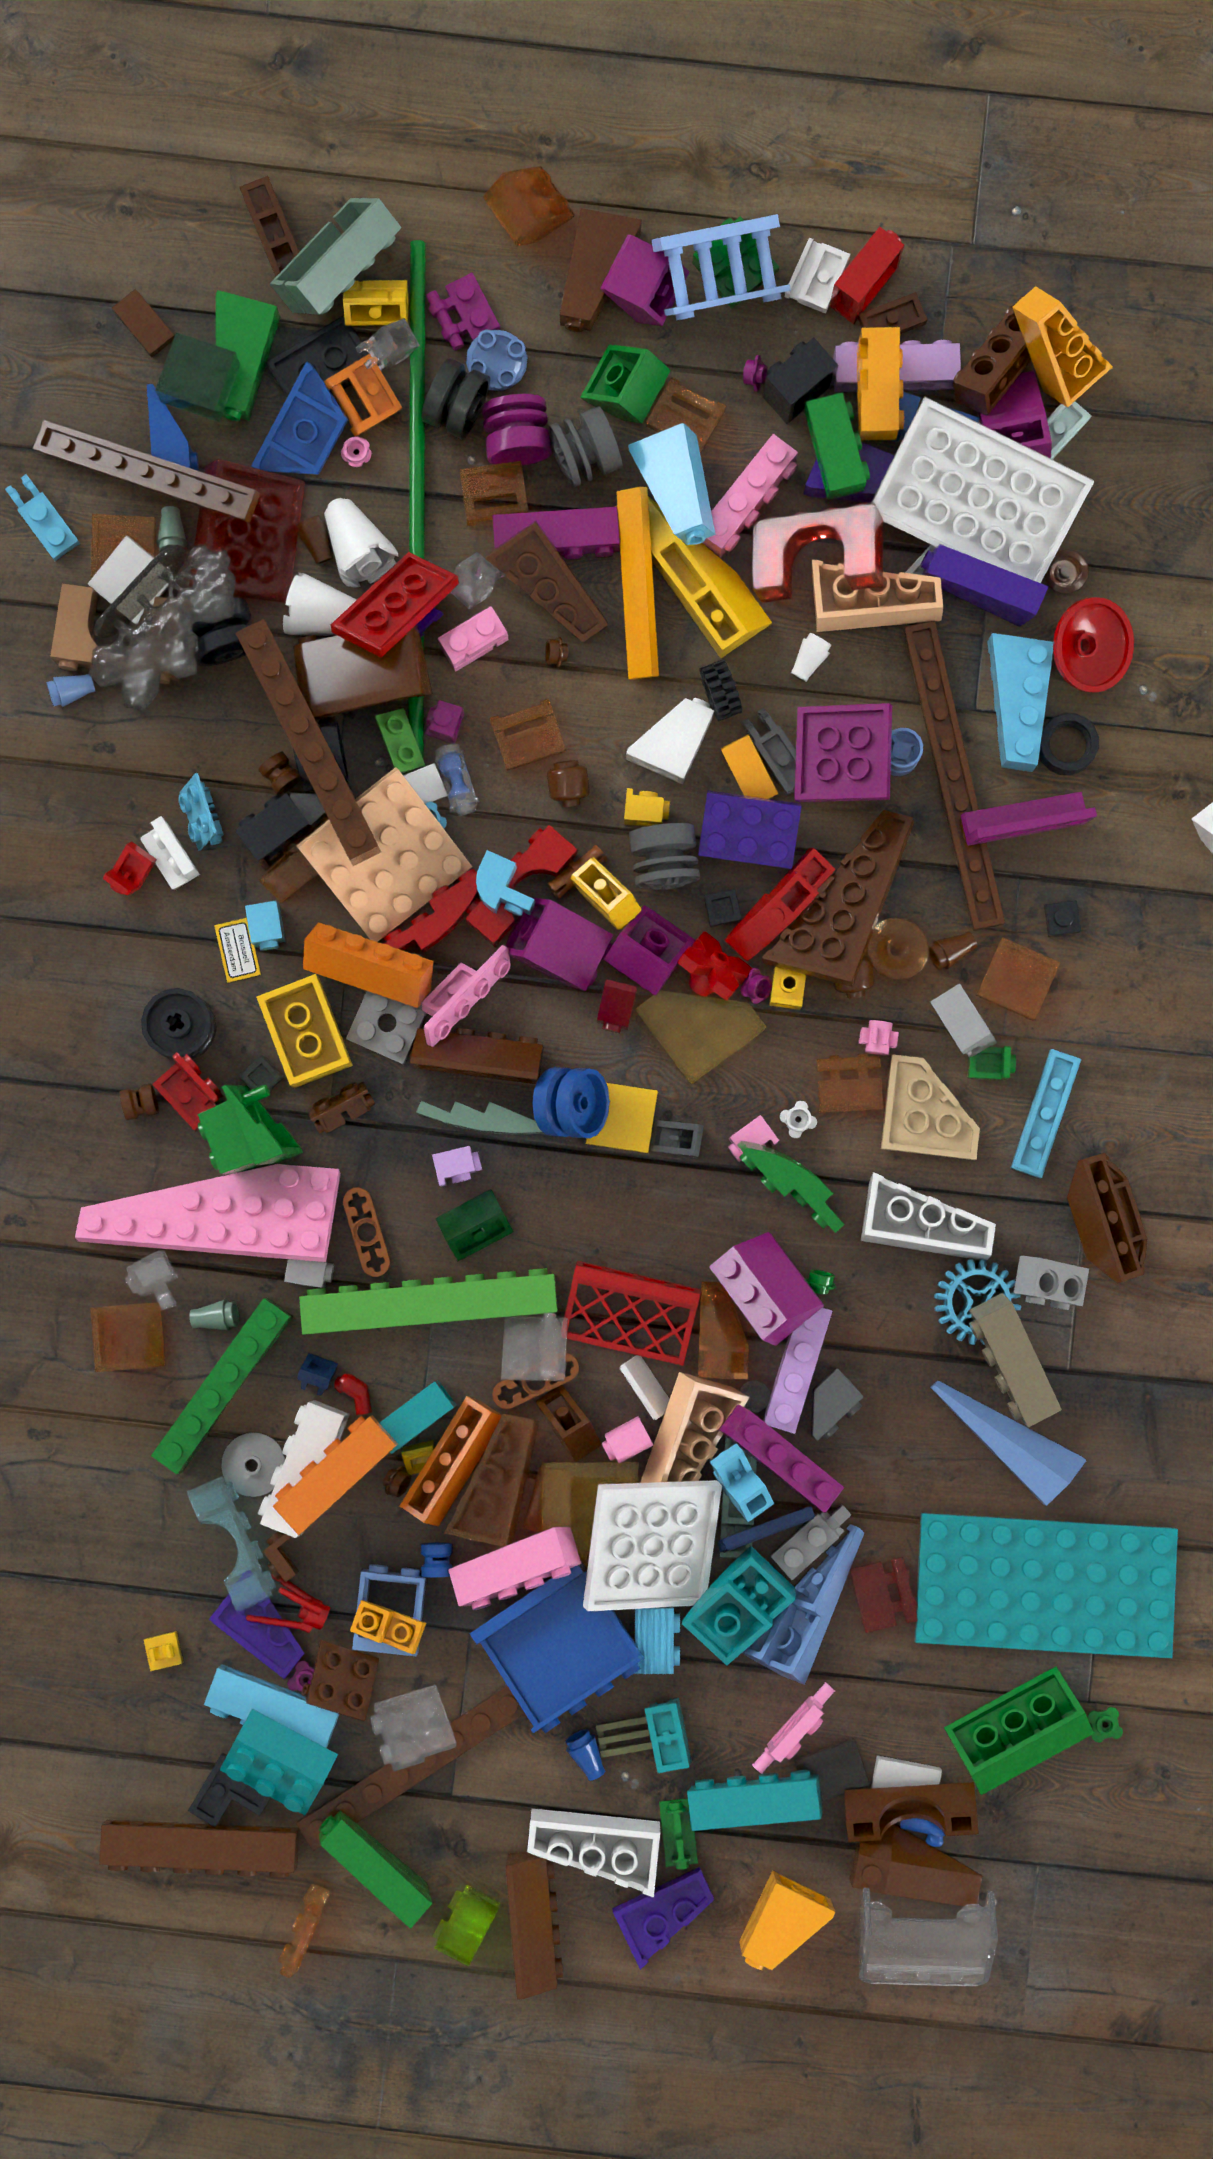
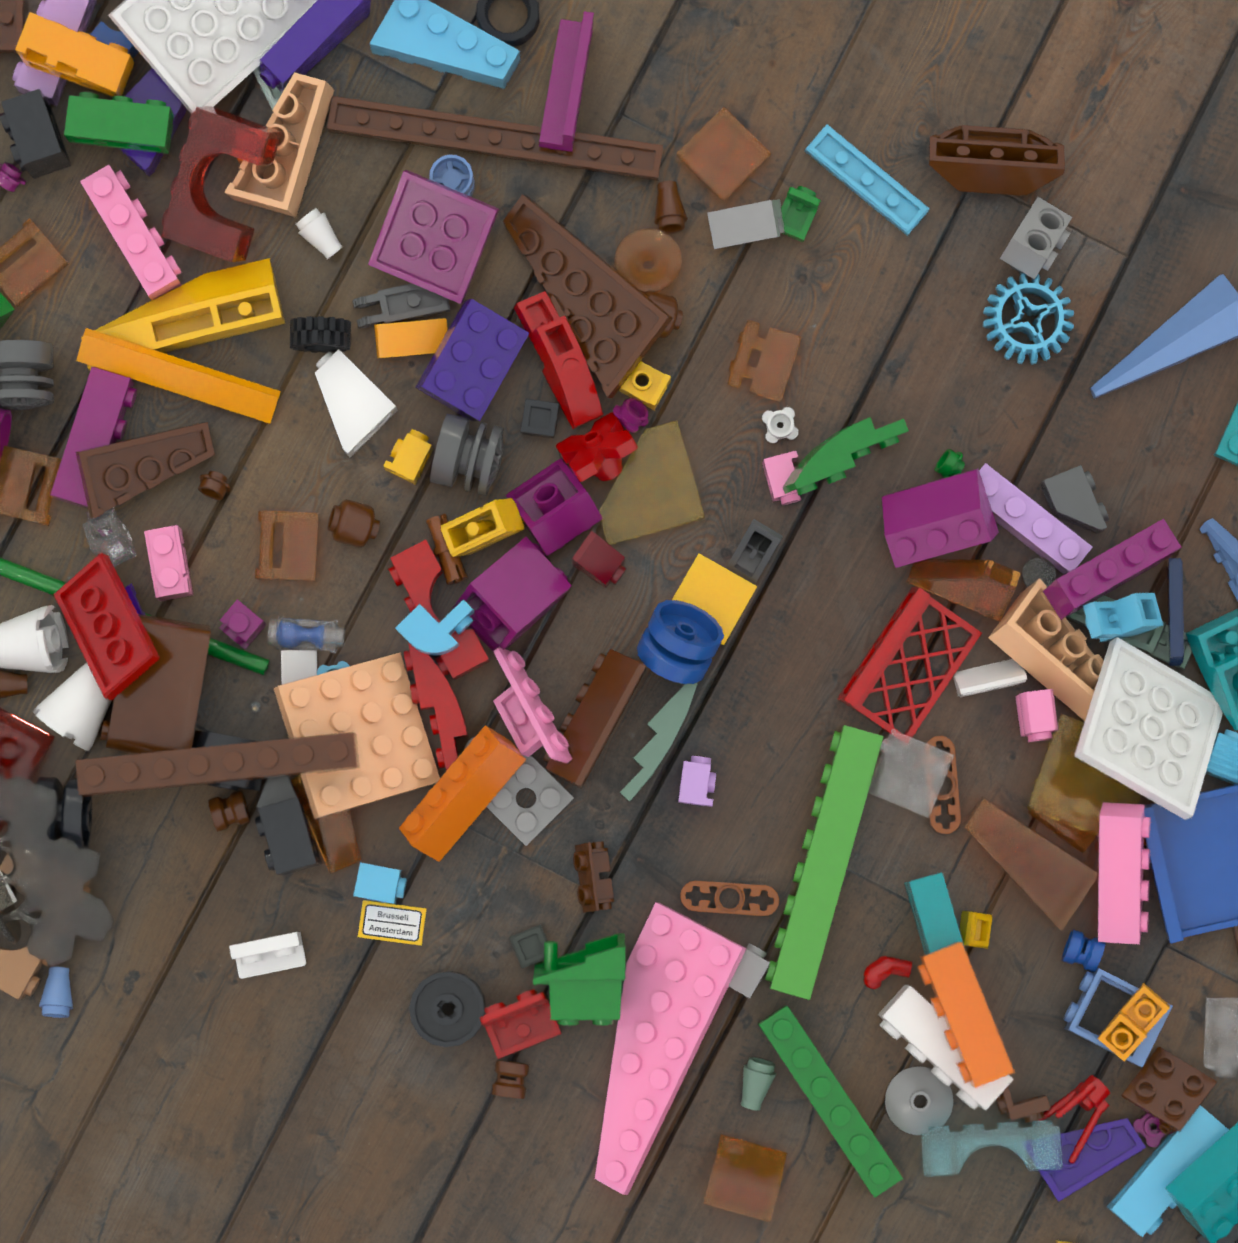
camera: 70 degrees left, 0 degrees up
(130, 870) = (269, 1000): red bracket -> none
(153, 1275) = (691, 1131): clear brick -> none
(195, 801) = (226, 907): medium azure hinge -> none
(304, 1031) = (503, 883): yellow brick -> none
(317, 1372) = (852, 1000): dark blue tile -> none
(396, 1481) = (990, 962): reddish brown plate -> none
(400, 741) = (244, 676): bright green hinge -> none
(451, 1462) = (992, 897): orange brick -> none
(474, 1225) = (763, 787): dark green panel -> none
(569, 1423) = (997, 767): reddish brown slope -> none
(677, 481) = (86, 295): slope -> none
(810, 1541) = (1202, 574): light grey hinge -> none
(878, 1037) = (730, 313): bright pink gear -> none
(923, 1223) = (925, 349): white wedge -> none
(925, 1114) = (822, 298): tan plate -> none
(1014, 1360) = (1101, 303): dark tan brick -> none
(1062, 918) = (679, 87): black plate -> none

